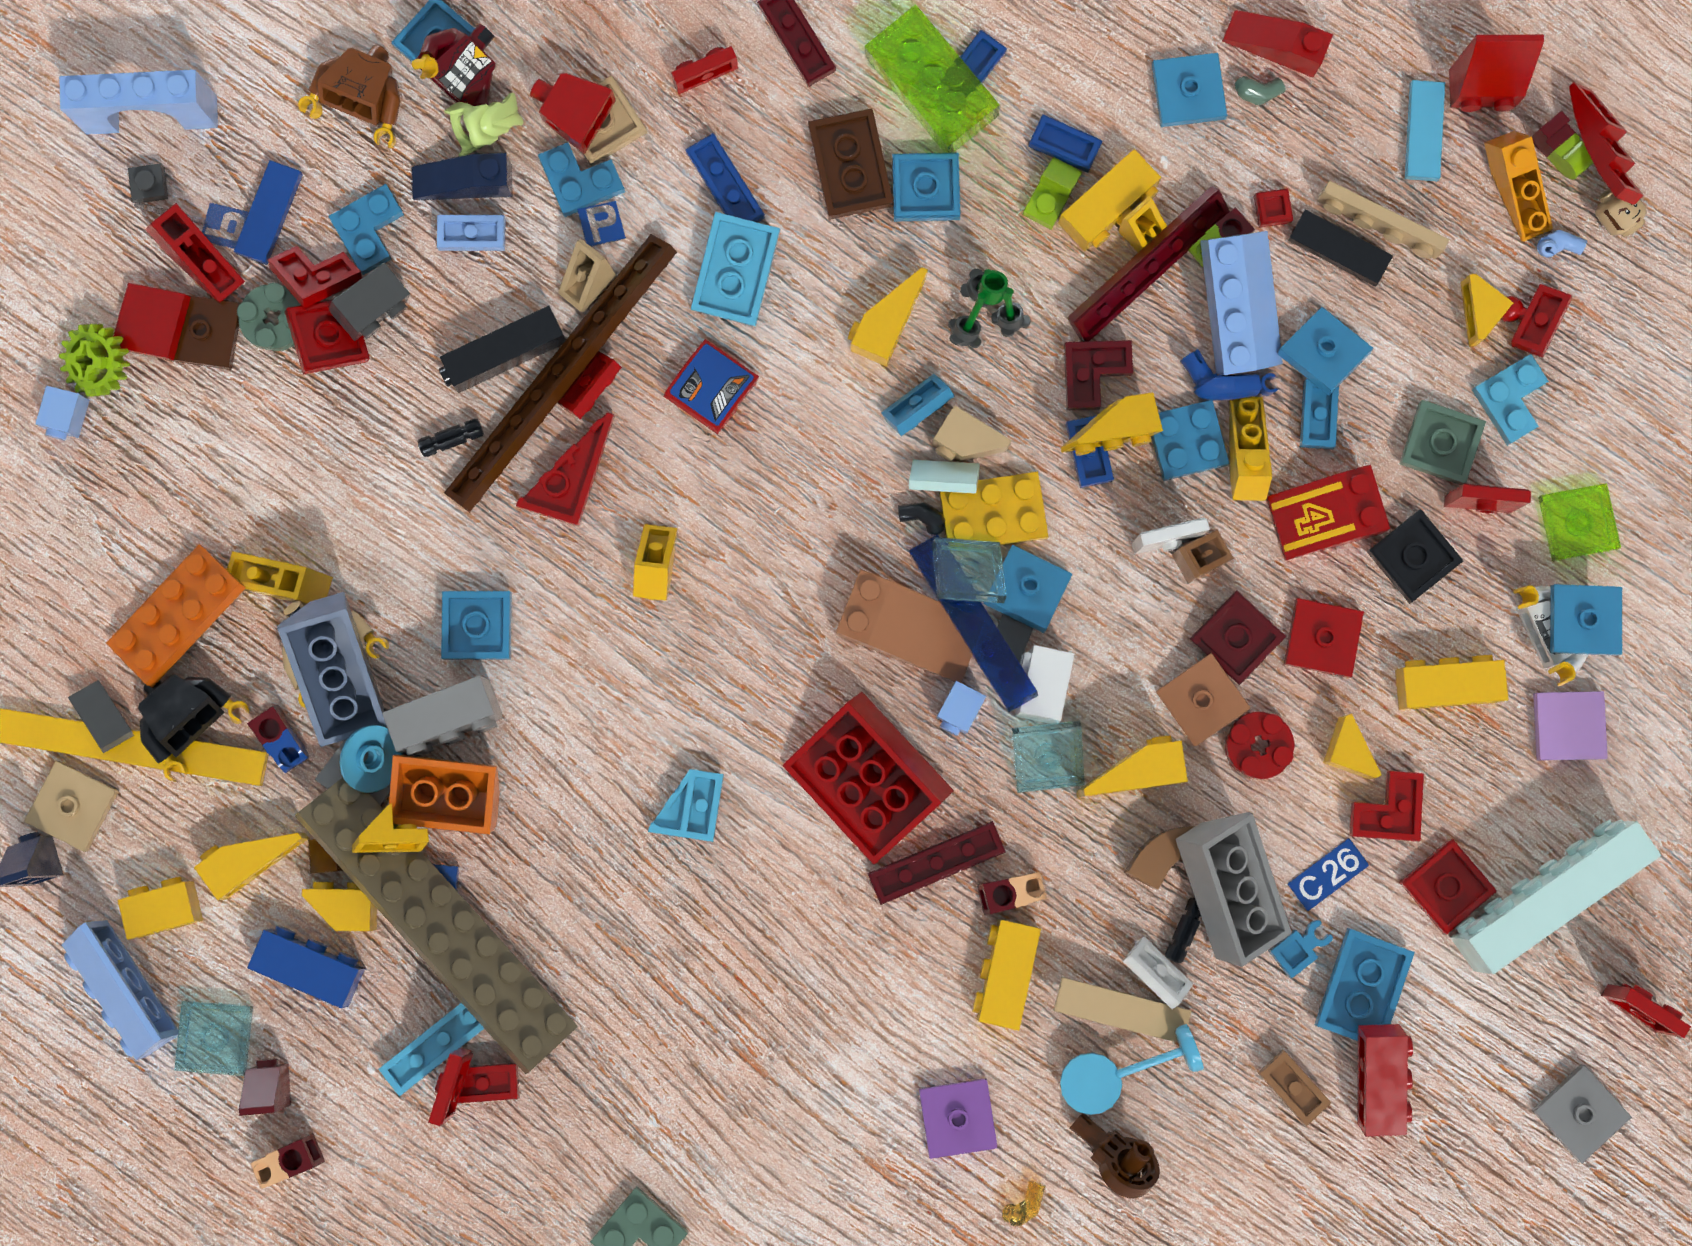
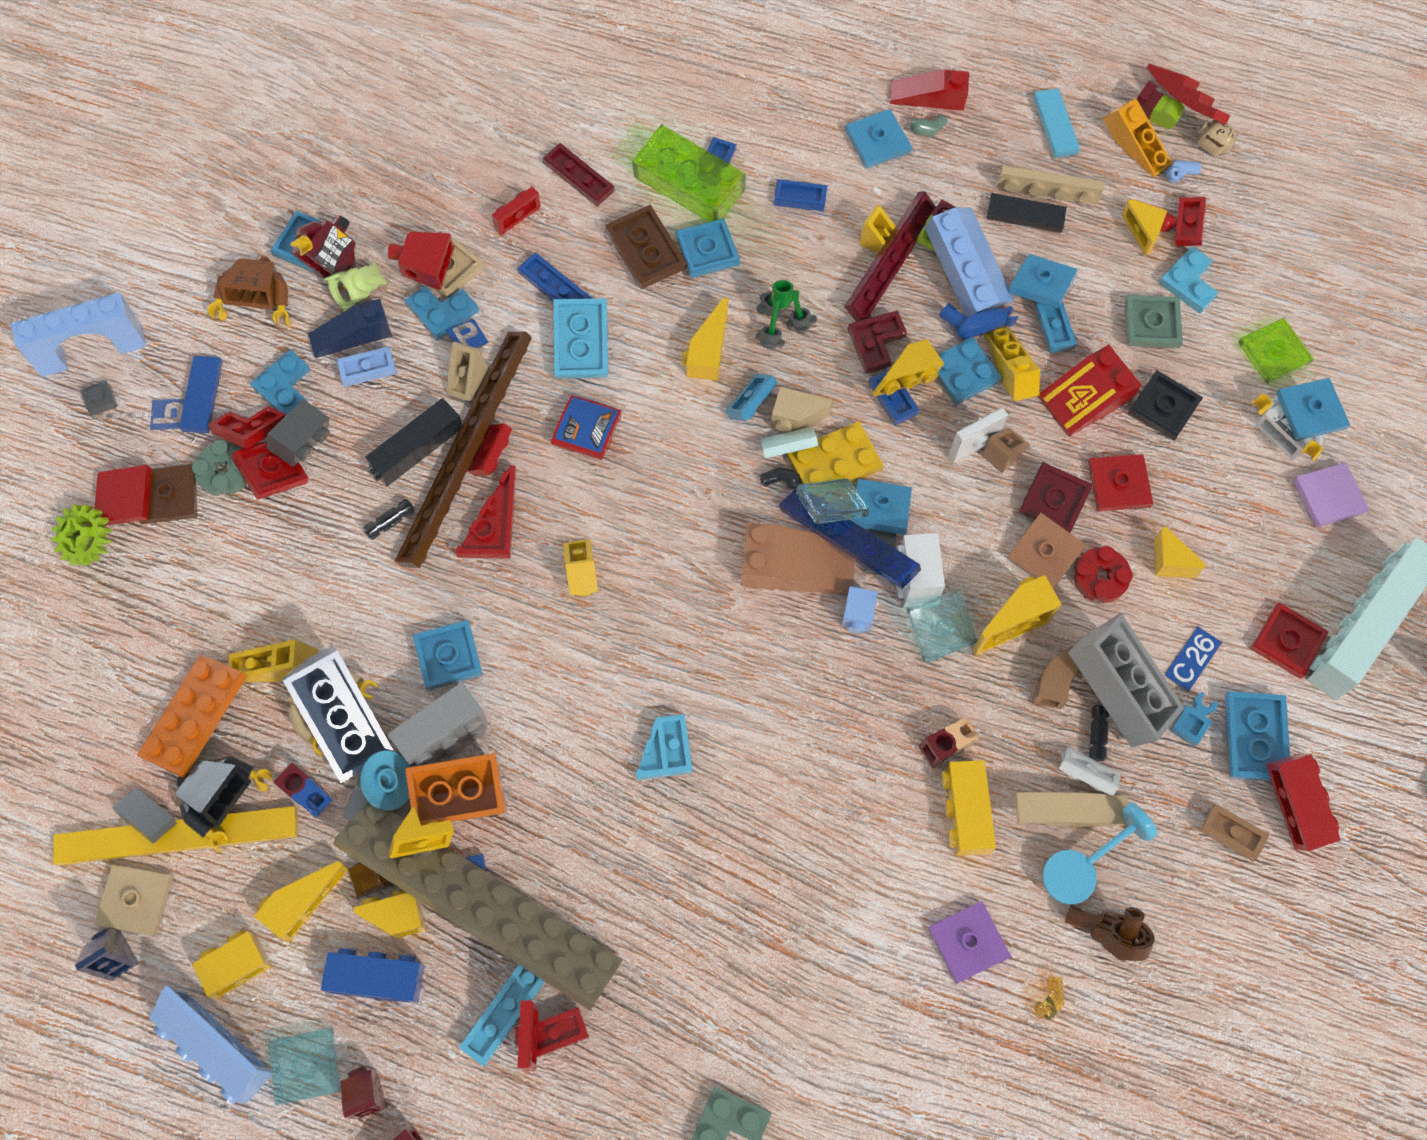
camera: 15 degrees left, 15 degrees down
(62, 413) = (62, 583): light blue brick -> none
(194, 253) = (146, 434): red slope -> none
(867, 777) = (802, 685): red slope -> none
(936, 862) = (879, 738): dark red tile -> none
(1052, 193) = (802, 230): lime slope -> none
(1110, 201) = (846, 222): yellow brick -> none
(1273, 208) = (968, 197): red tile -> none
(1399, 816) = (1230, 593): red plate -> none
(1451, 683) = (1230, 487): yellow brick -> none
(1487, 498) = (1204, 346): red plate -> none
(1494, 71) = (1092, 64): red slope -> none

